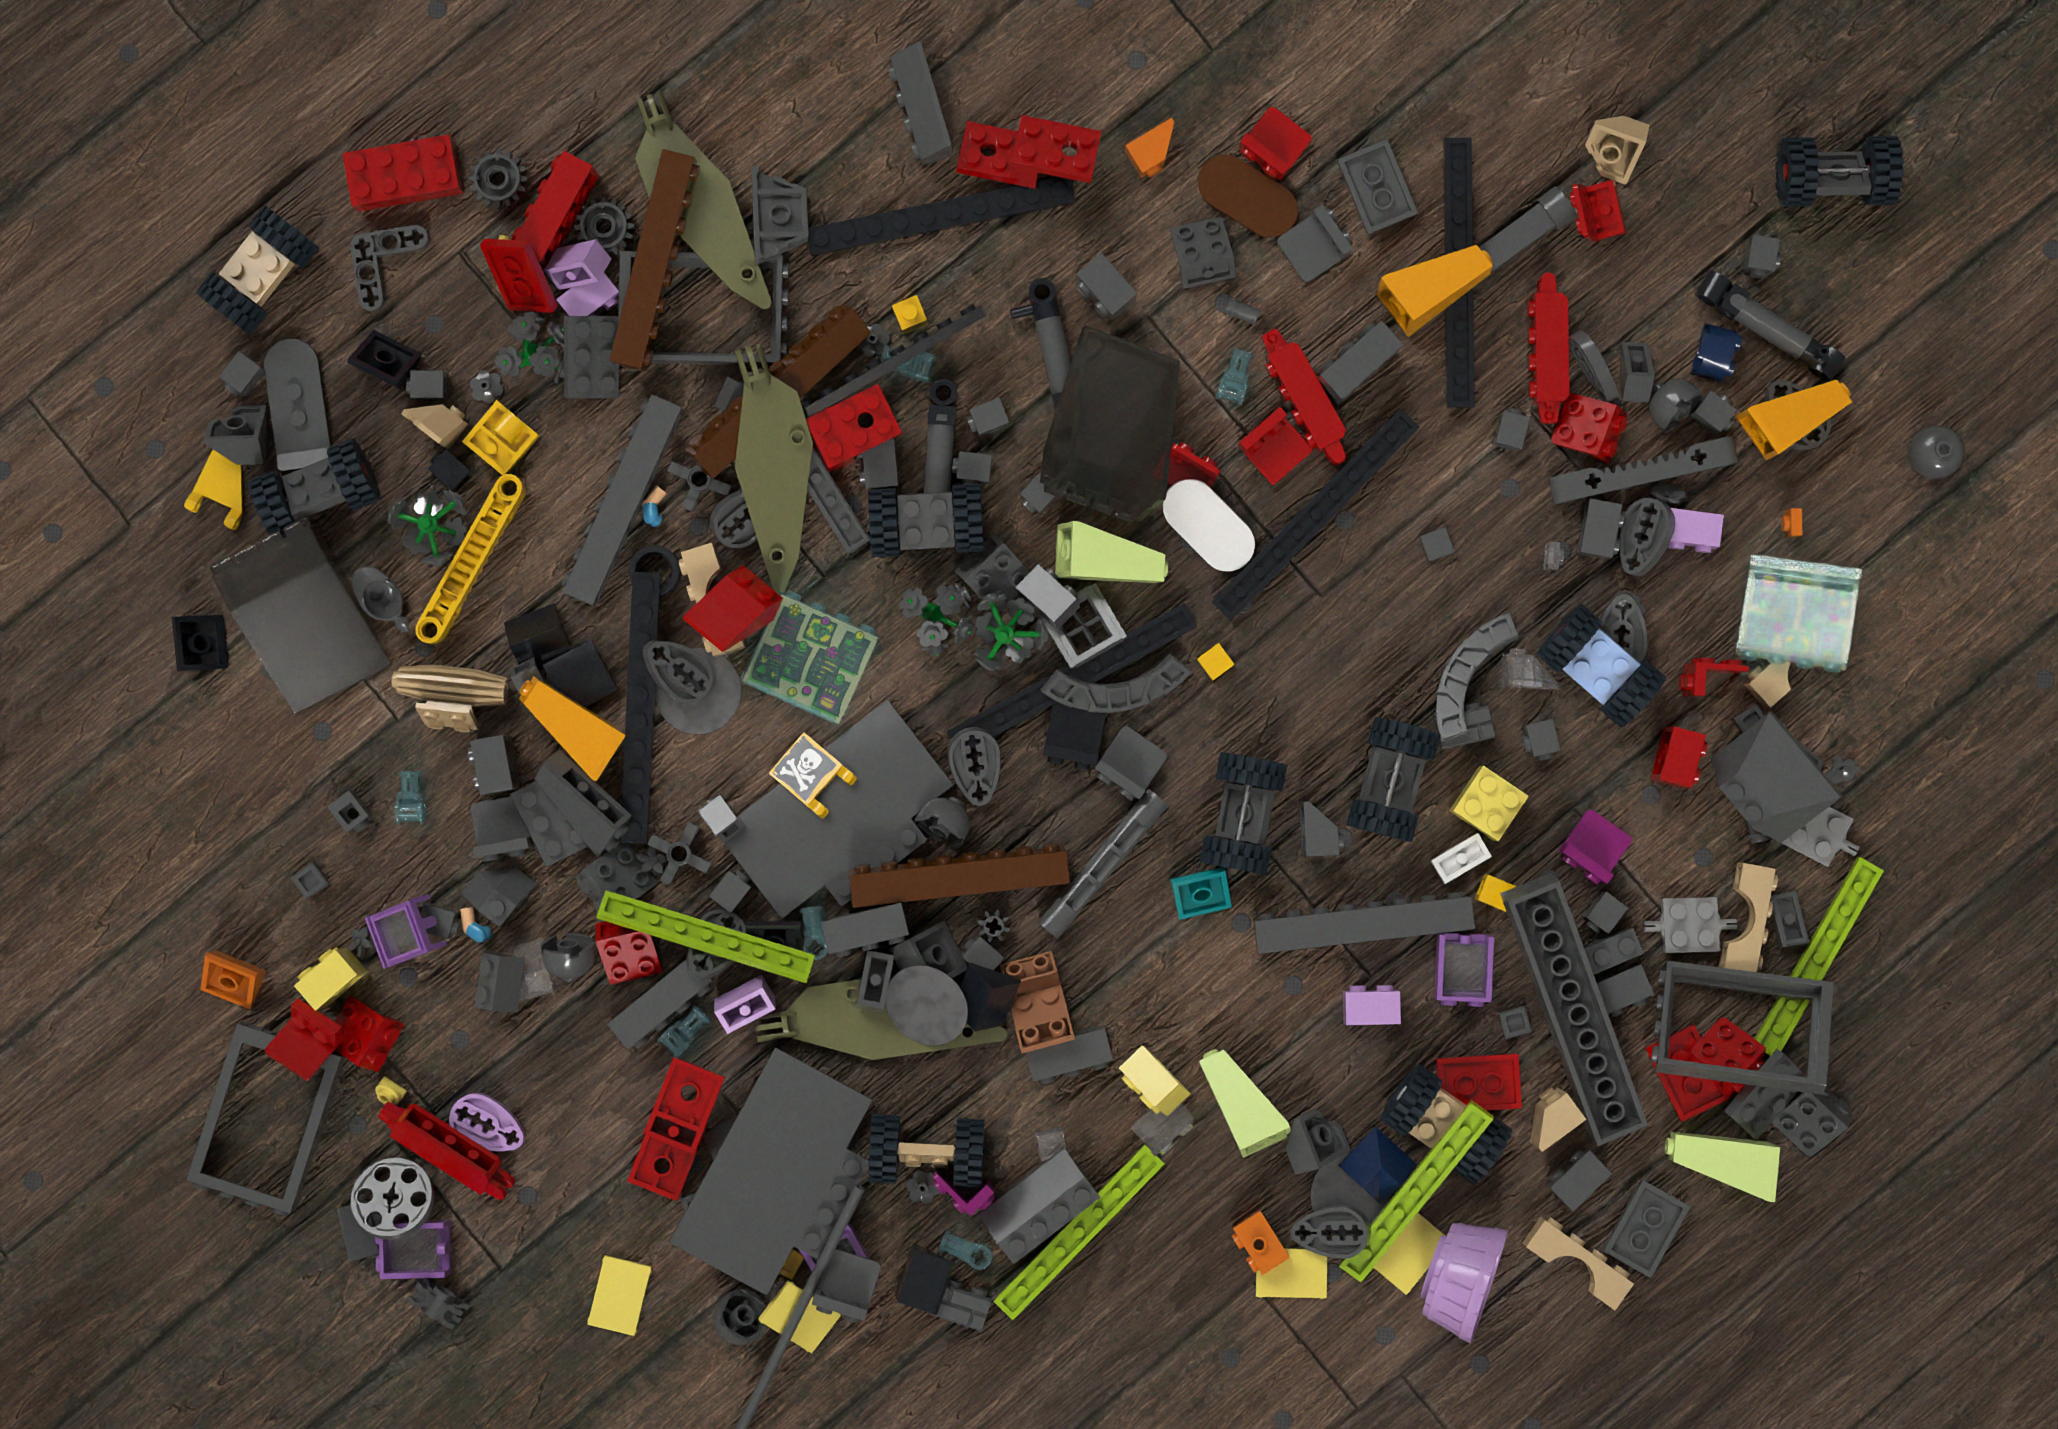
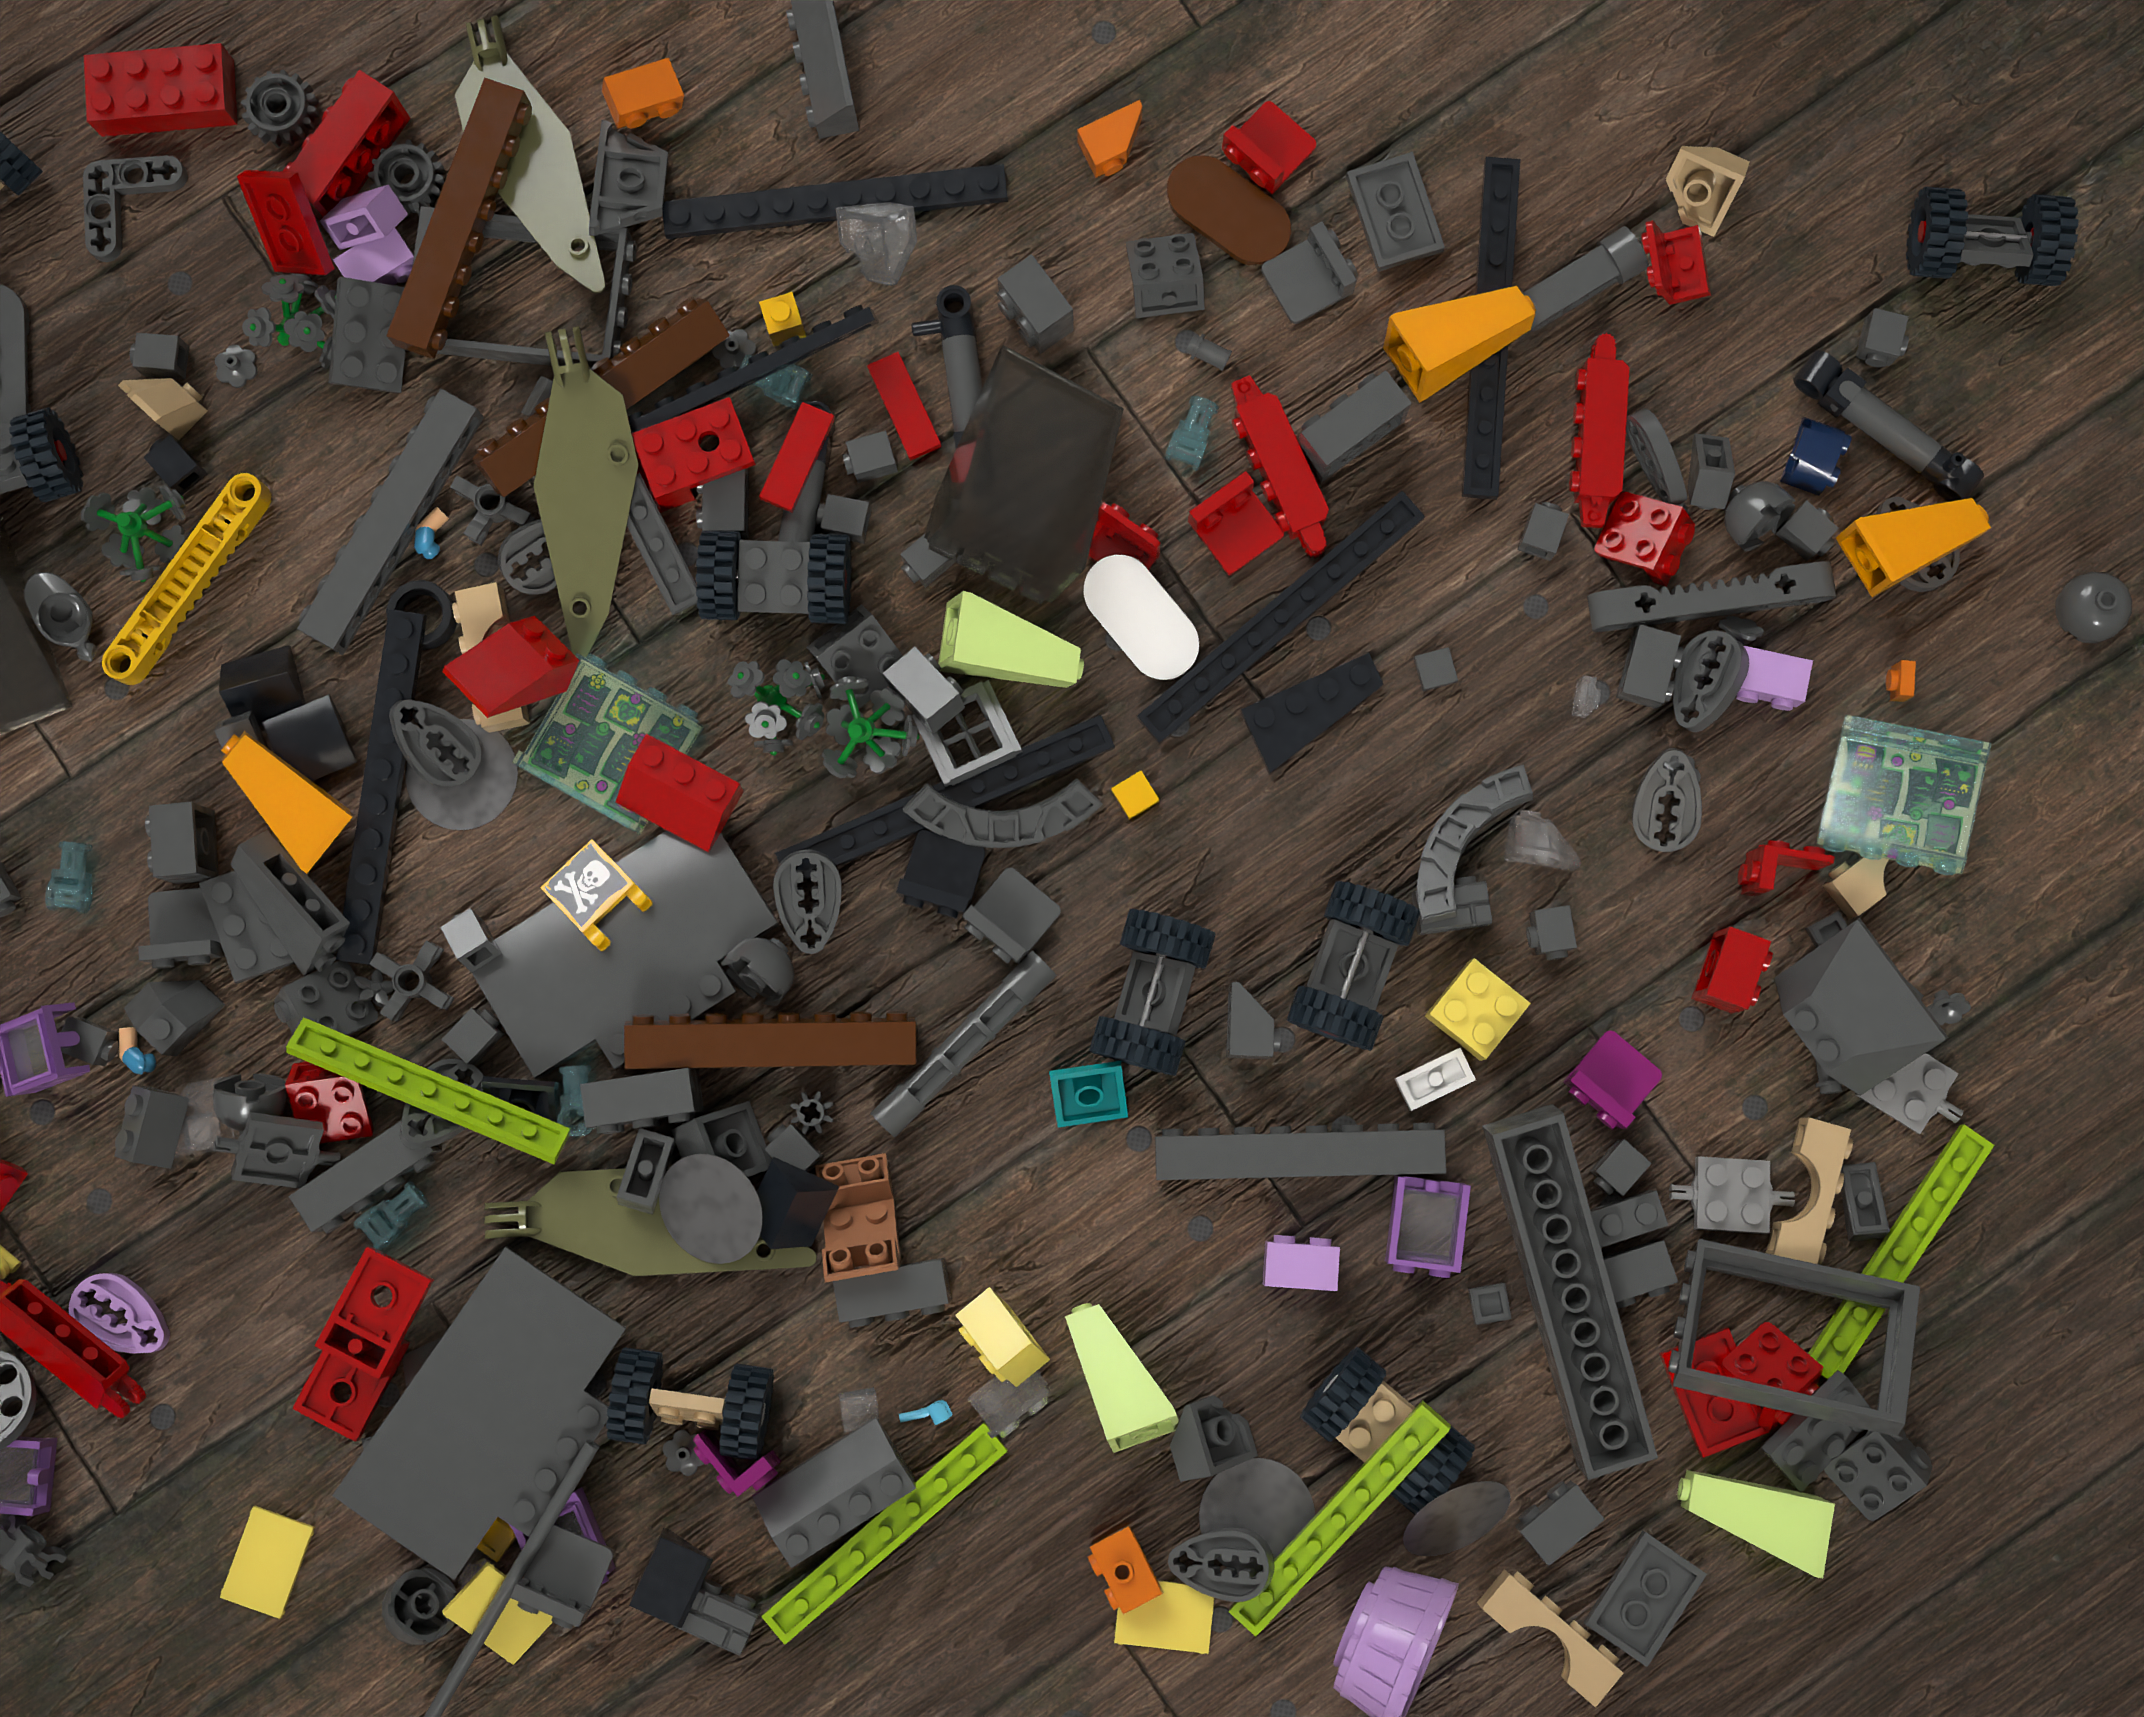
camera: 10 degrees right, 5 degrees down
(385, 359) = (107, 318): black slope -> none
(450, 693) = (138, 747): tan plate -> none
(500, 438) = (244, 430): yellow plate -> none
(595, 991) = (276, 1150): none -> dark grey plate
(744, 1004) = (473, 1186): lavender brick -> none
(783, 144) = (643, 94): none -> orange brick
(868, 693) = (678, 793): none -> red slope
(933, 425) = (797, 457): none -> red tile
(964, 1250) = (730, 1543): clear light blue connector -> none
(979, 243) = (879, 237): none -> clear slope
(1009, 374) = (904, 406): none -> red tile
(1028, 151) = (953, 126): red bracket -> none
(1109, 1138) = (938, 1411): none -> medium azure hand
(1336, 588) = (1304, 711): none -> black wing
(1377, 1165) = (1292, 1479): dark blue slope -> none
(1410, 1254) = (1324, 1603): light yellow piece -> none
(1485, 1079) = (1445, 1376): red plate -> none
(1490, 891) = (1469, 1127): yellow brick -> none
(1502, 1183) = (1456, 1518): none -> flat silver sticker
(1554, 1118) = (1532, 1437): tan slope -> none
(1601, 666) = (1639, 841): plate -> none

